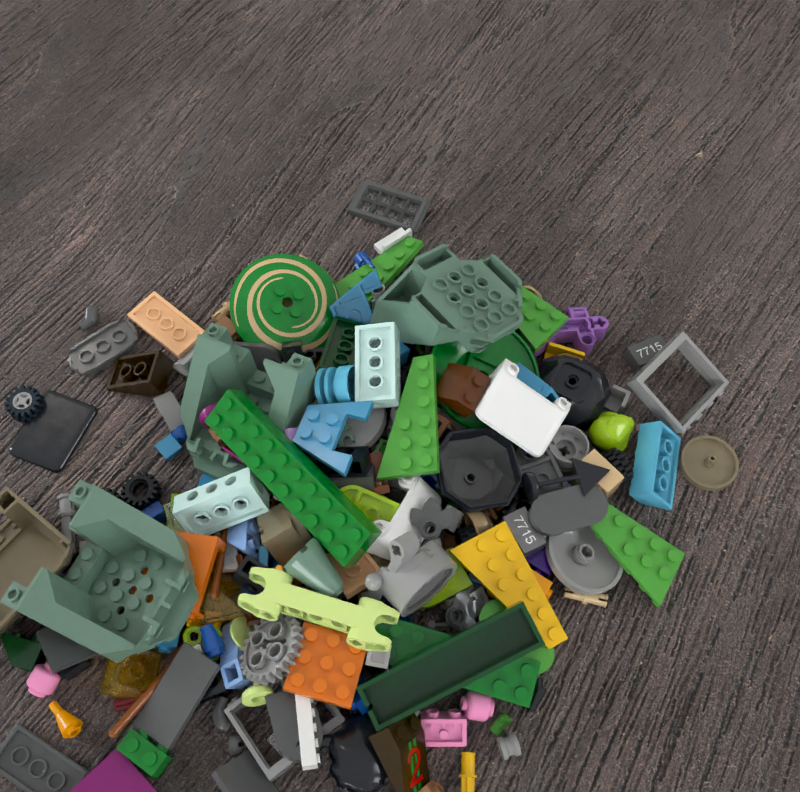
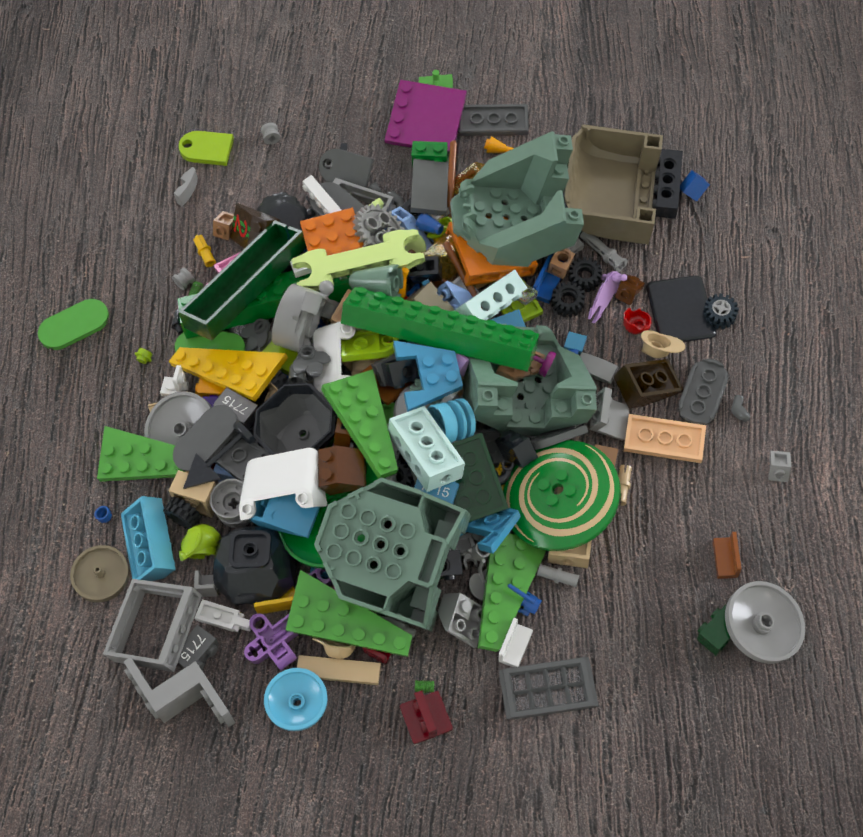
camera: 155 degrees right, 0 degrees up
(78, 469) = (628, 289): none -> reddish brown bracket
(100, 259) = (779, 466): none -> light grey bracket
(100, 396) = (660, 345): none -> tan piece
(101, 432) = (636, 321): none -> red hair
(106, 474) = (605, 293): none -> lavender piece
(195, 221) = (727, 556): none -> dark orange panel
(210, 166) = (765, 622): none -> light grey dish
(245, 180) = (714, 634): none -> dark green slope
(329, 268) = (558, 575): none -> light grey pin
(472, 245) = (420, 685): none -> bright green piece
(488, 228) = (425, 716): none -> dark red bracket
(548, 294) = (341, 669): none -> tan tile
(570, 613) = (175, 384): none -> white bracket
(583, 270) = (292, 686): none -> medium azure dish
(590, 669) = (143, 356): none -> lime plate
(612, 368) = (222, 617): none -> white hinge
(656, 761) = (73, 324): none -> bright green tile
(673, 319) = (177, 692): none -> light grey bracket
(693, 515) = (103, 514): none -> blue hinge

